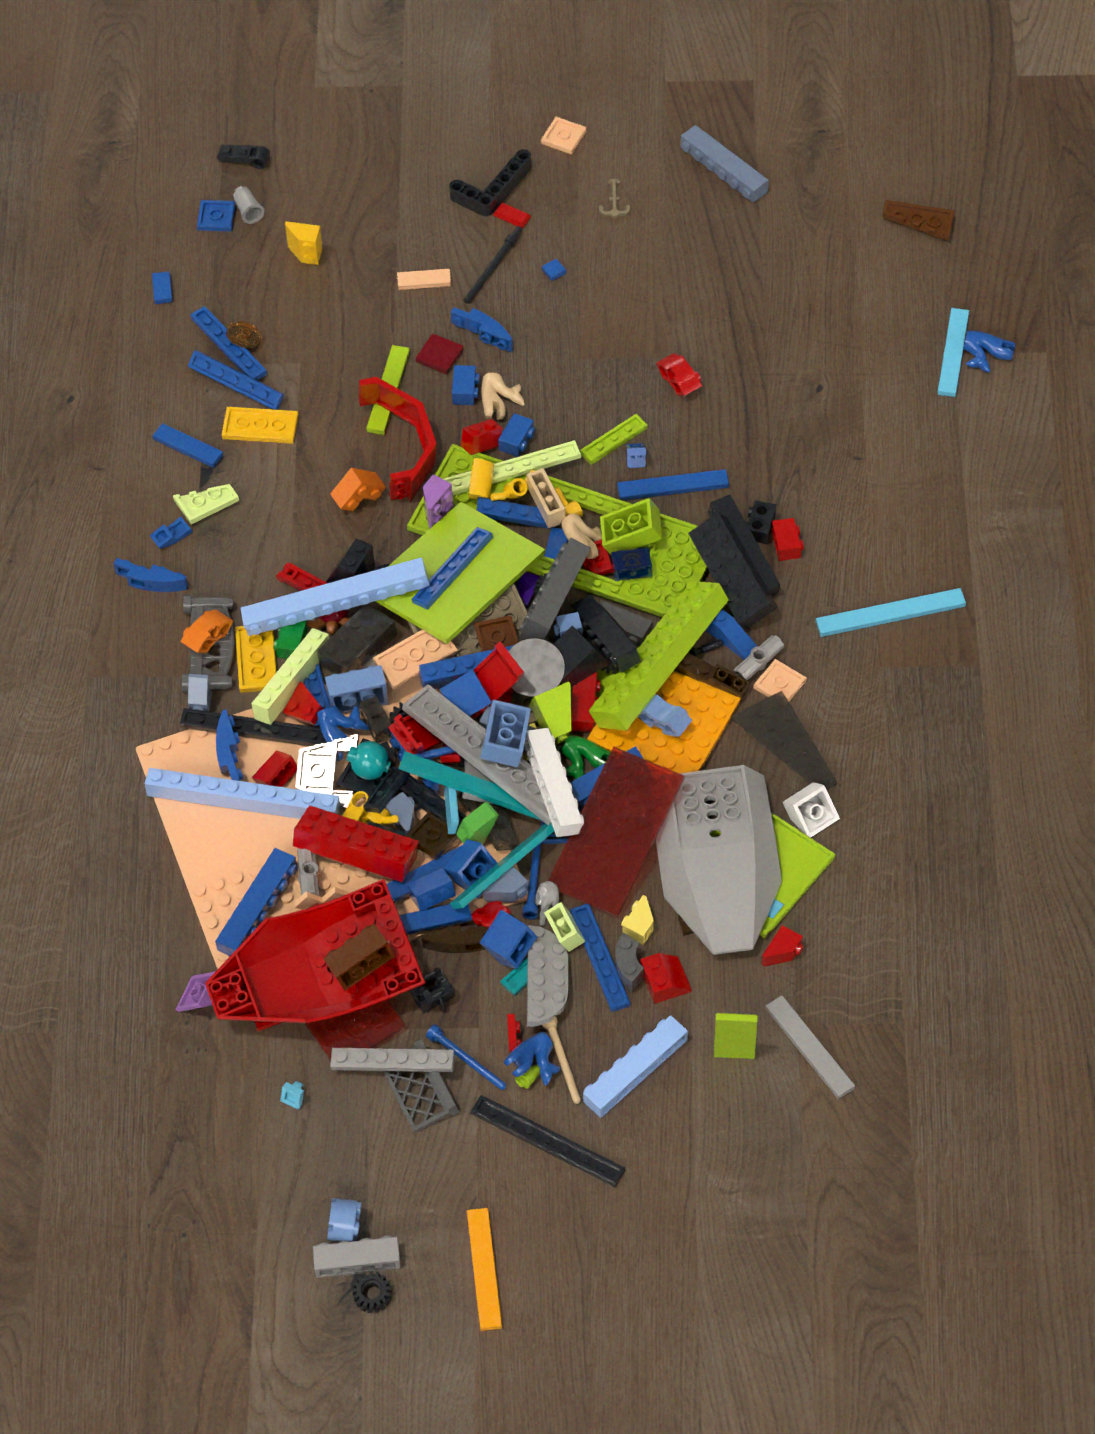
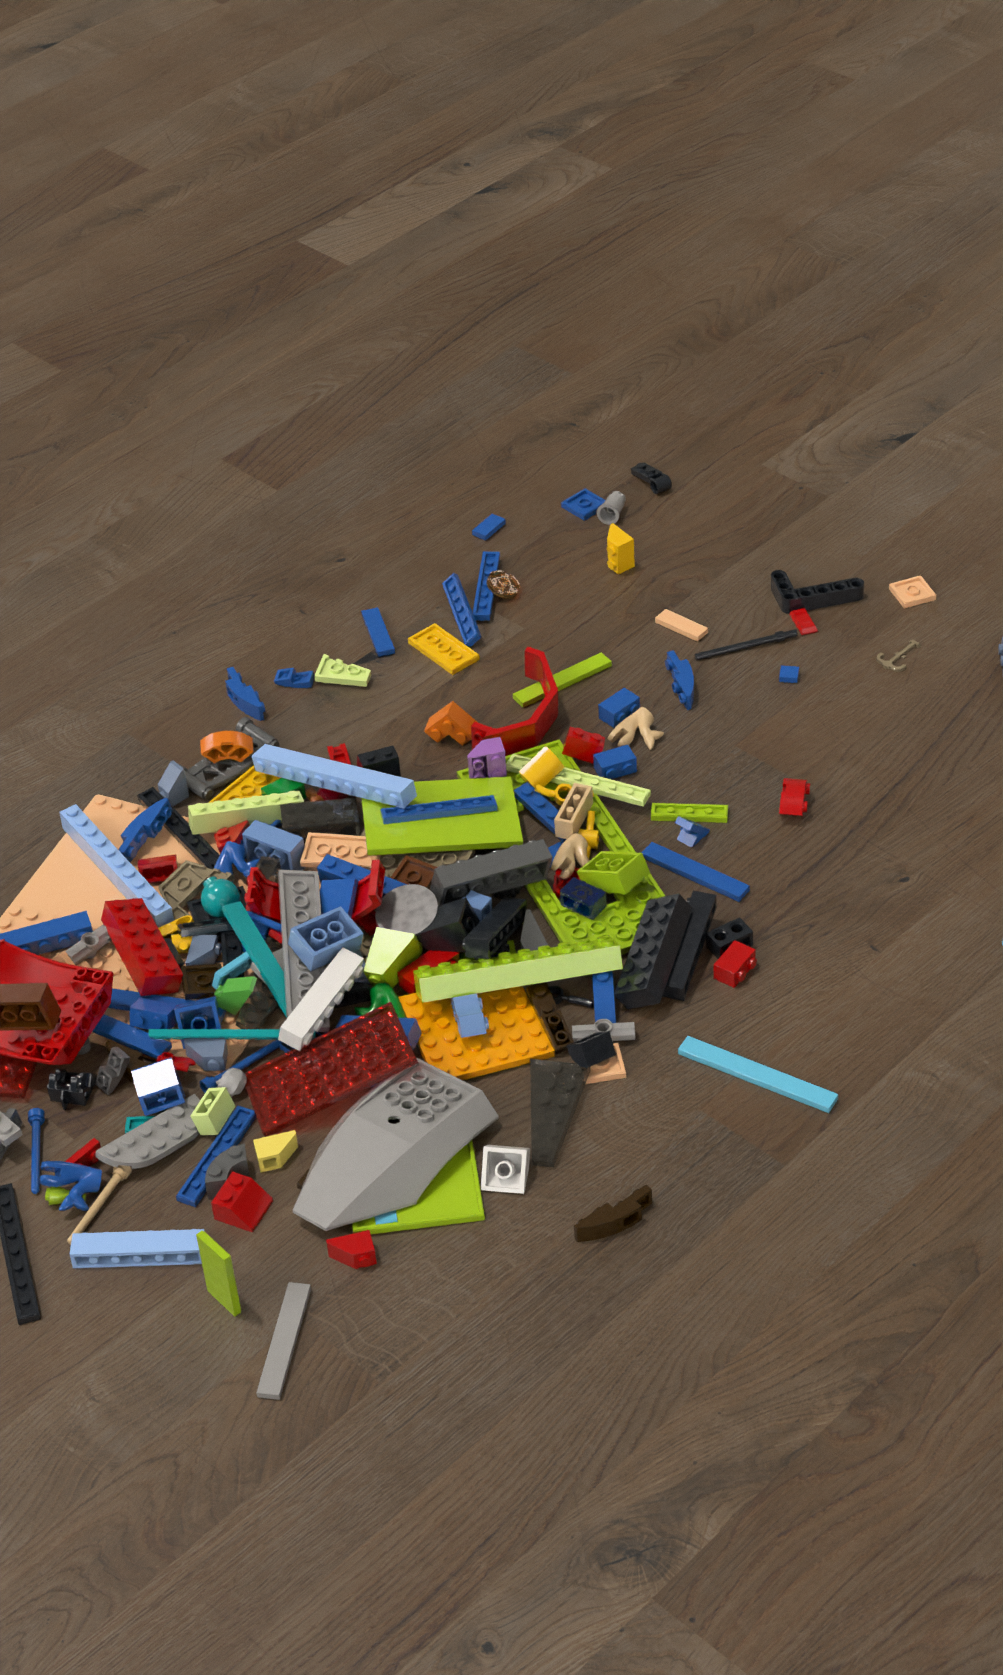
camera: 45 degrees right, 15 degrees down
(439, 353) = (631, 677): dark red tile -> none
(451, 954) = (111, 1074): none -> flat silver slope
(773, 676) = (592, 1049): none -> black brick
(920, 788) = (611, 1220): none -> dark brown slope

